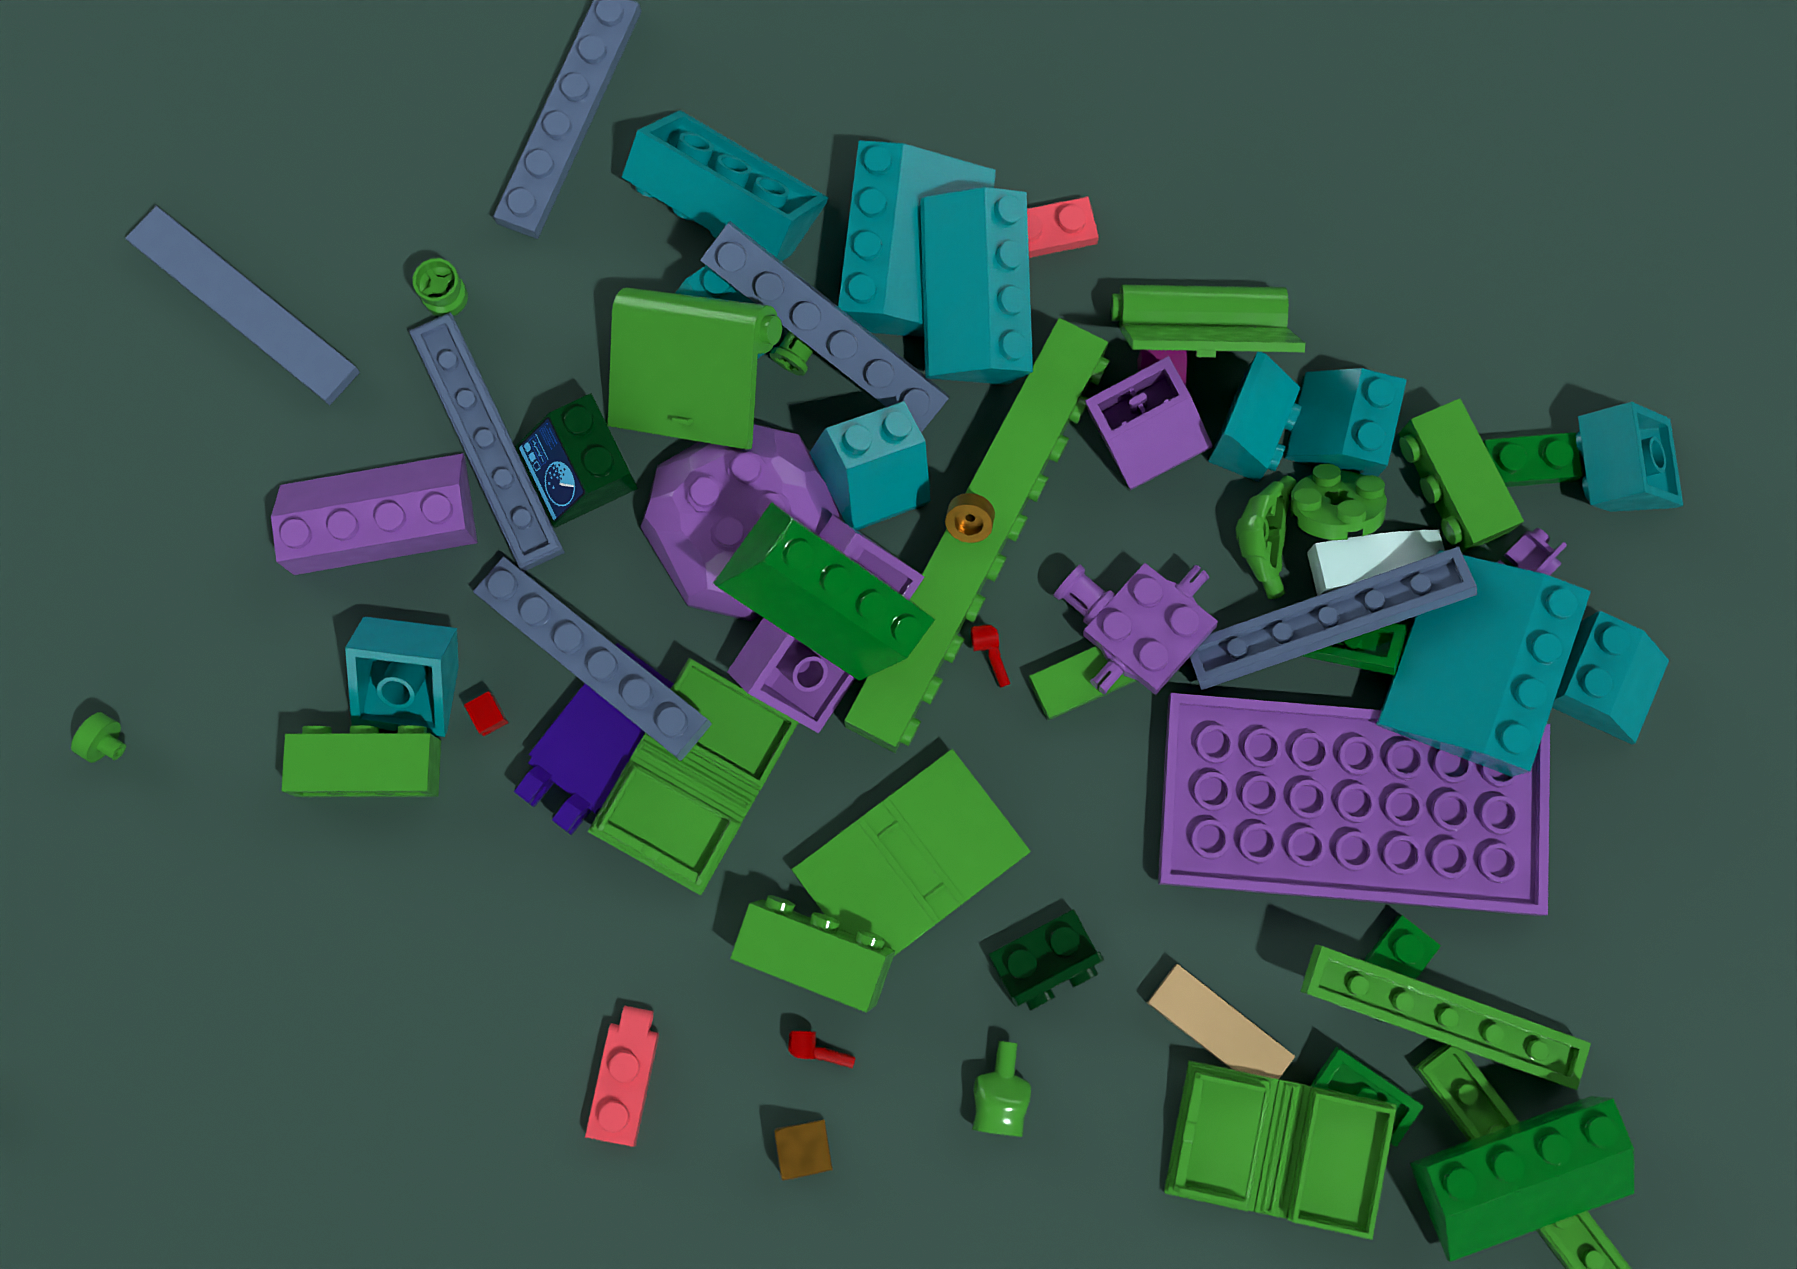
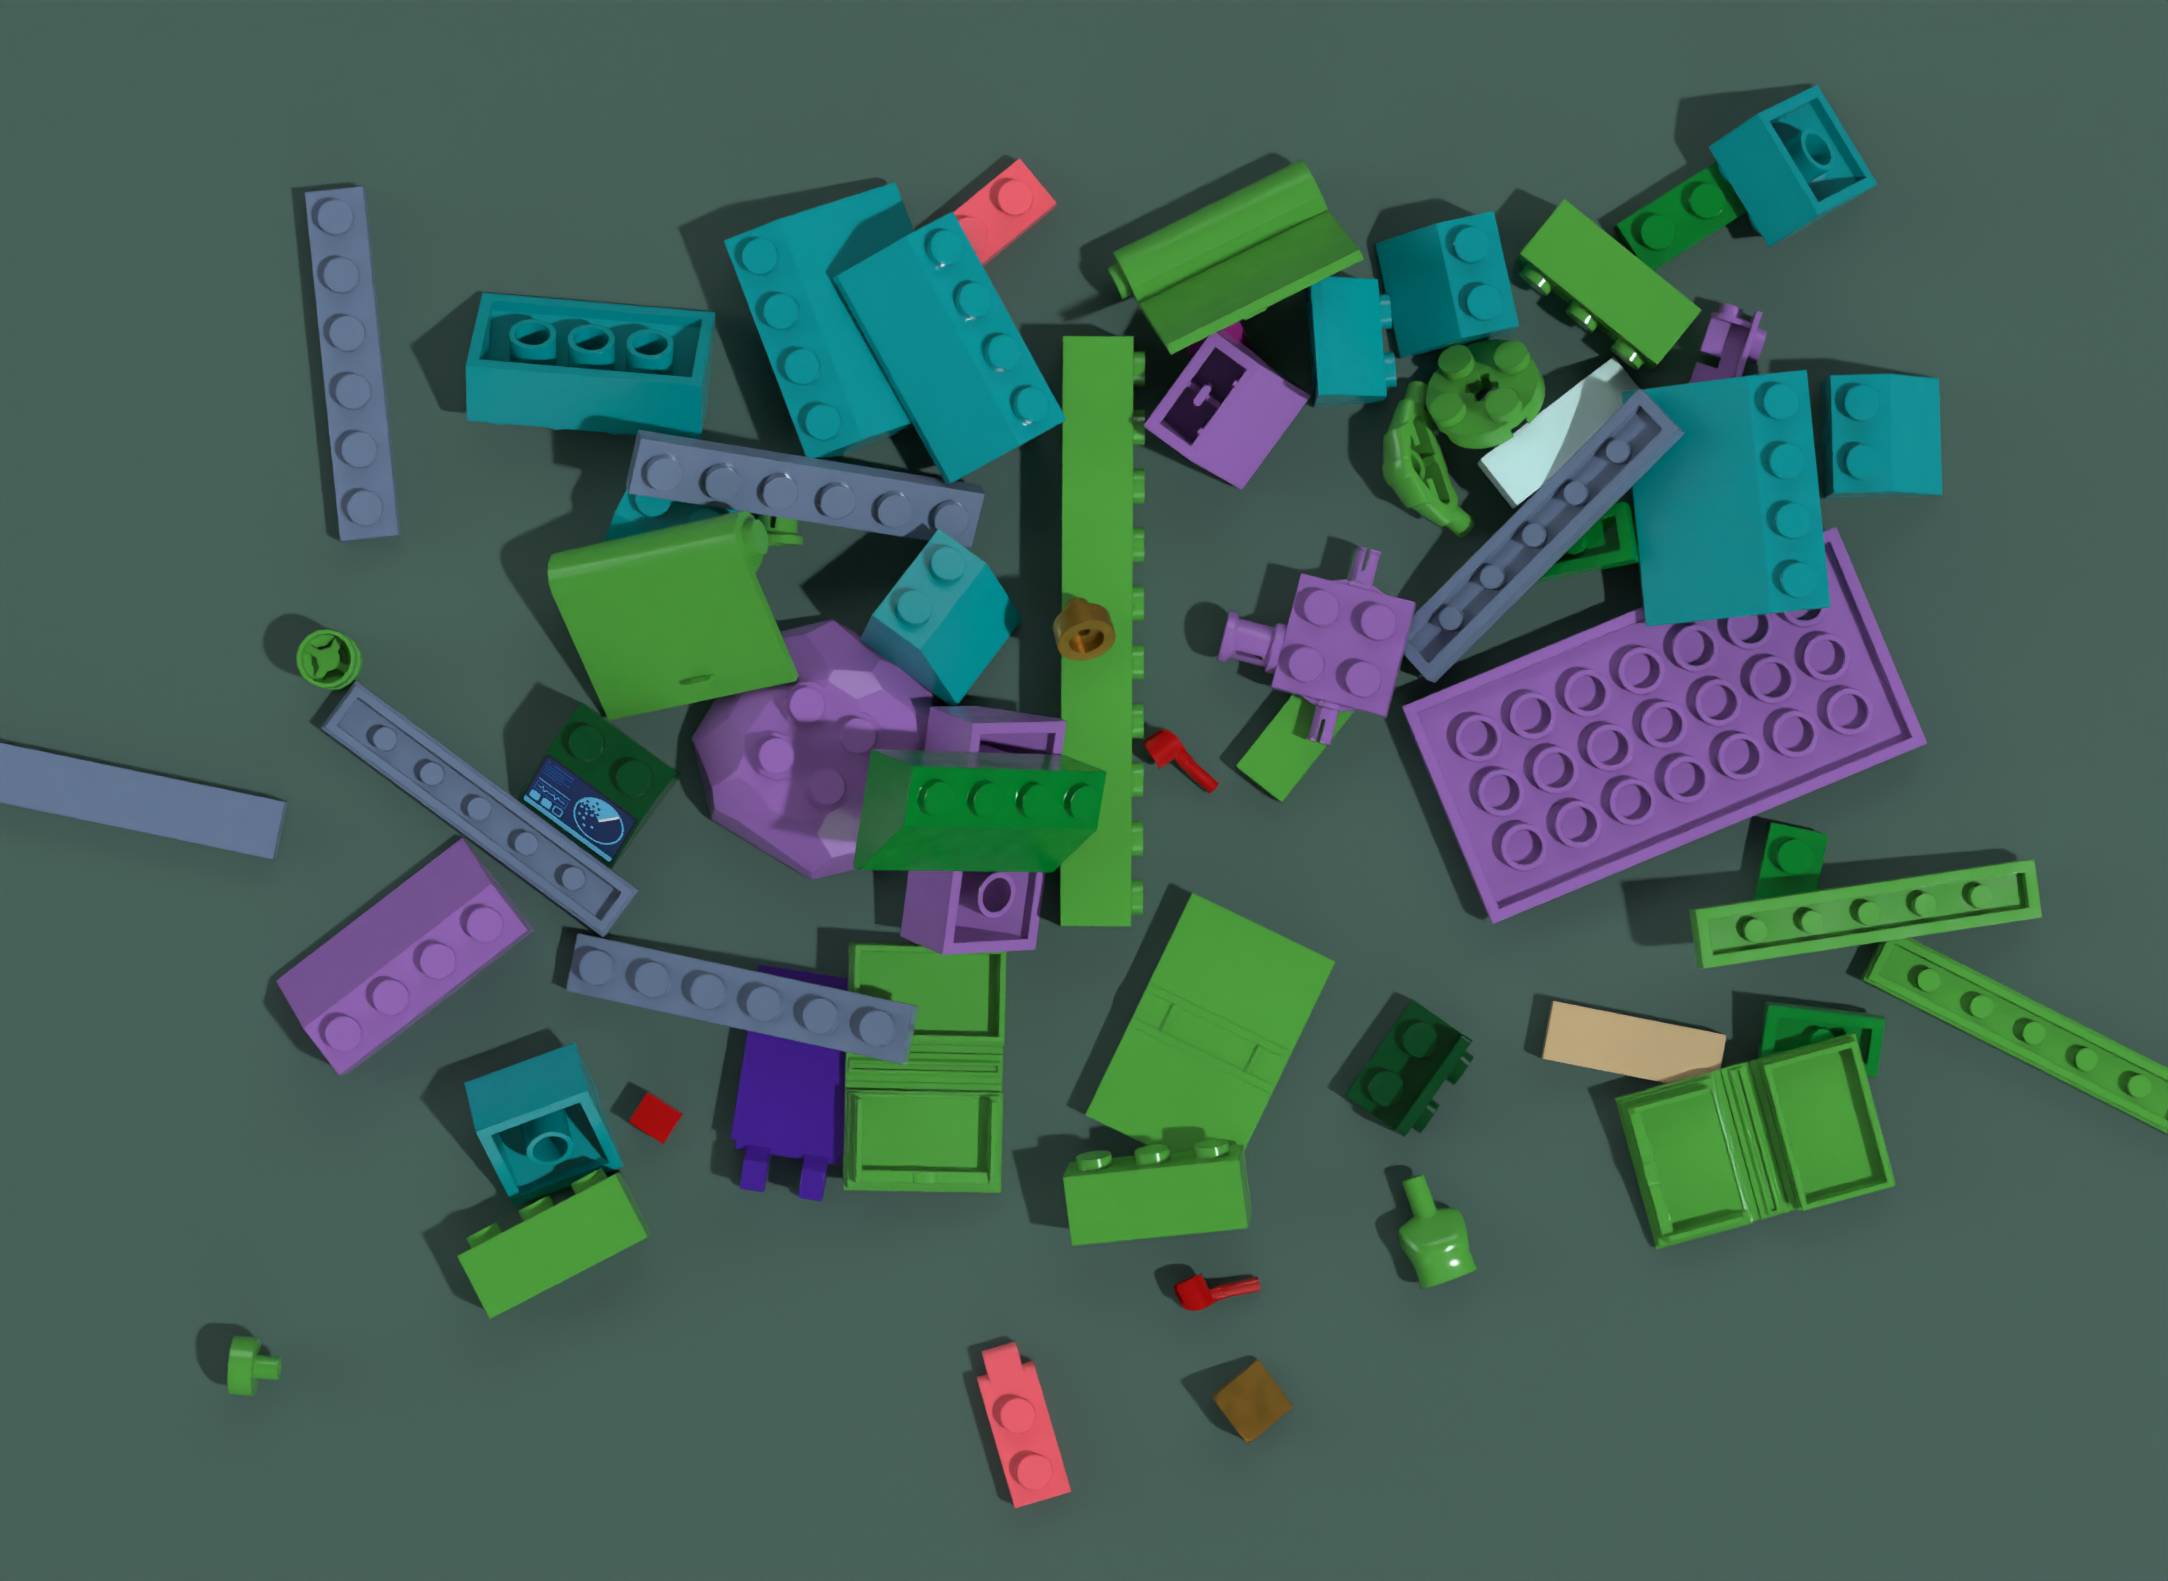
camera: 25 degrees left, 10 degrees up
(1527, 1176) = (2025, 1038): green slope -> none

